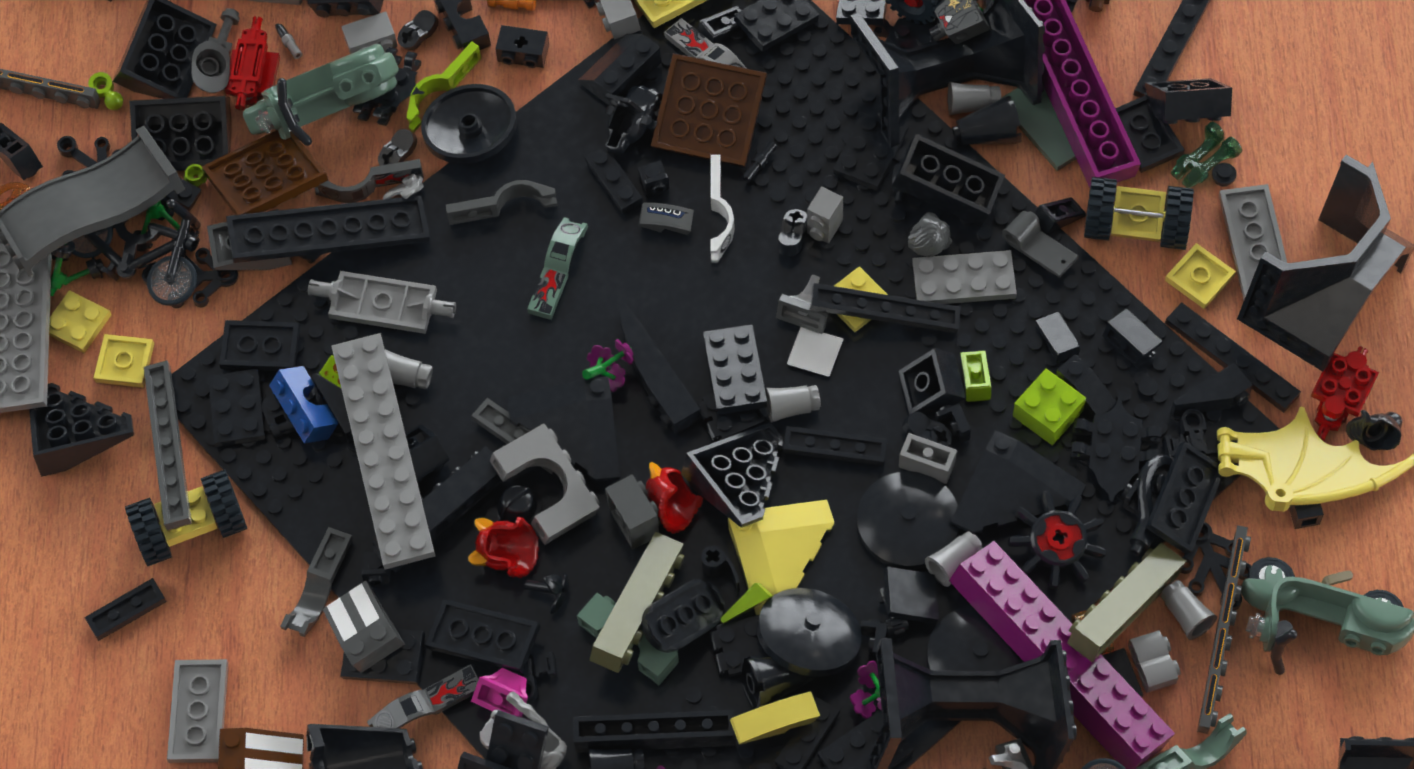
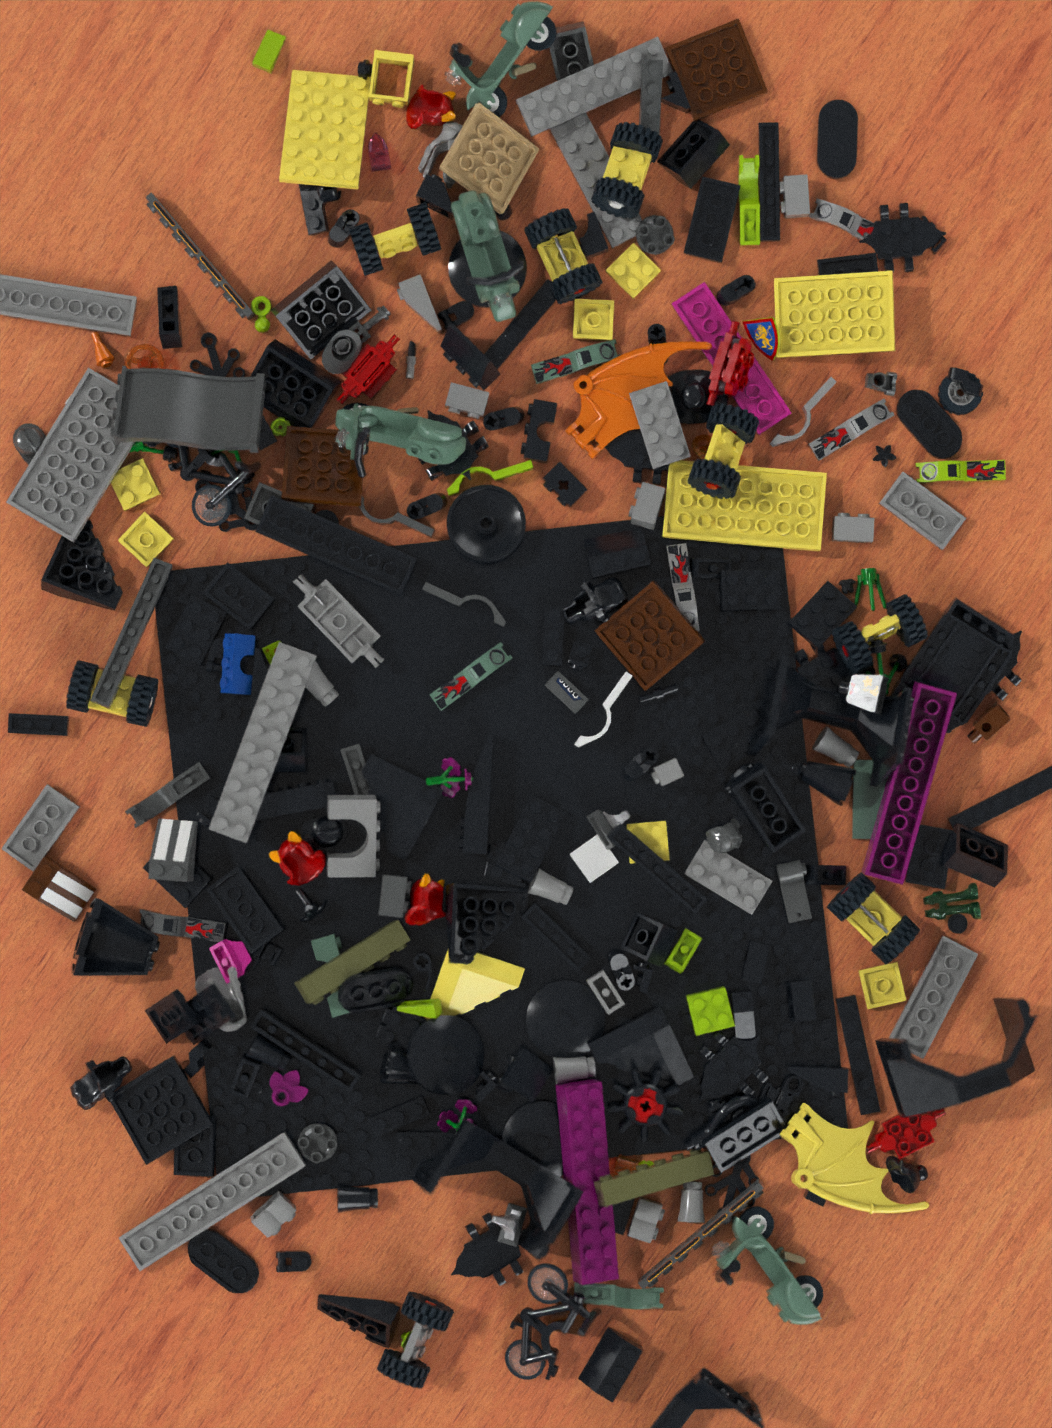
camera: 30 degrees right, 25 degrees up
(410, 185) = (410, 542): light grey plate -> none
(775, 718) = (382, 1099): light yellow slope -> none

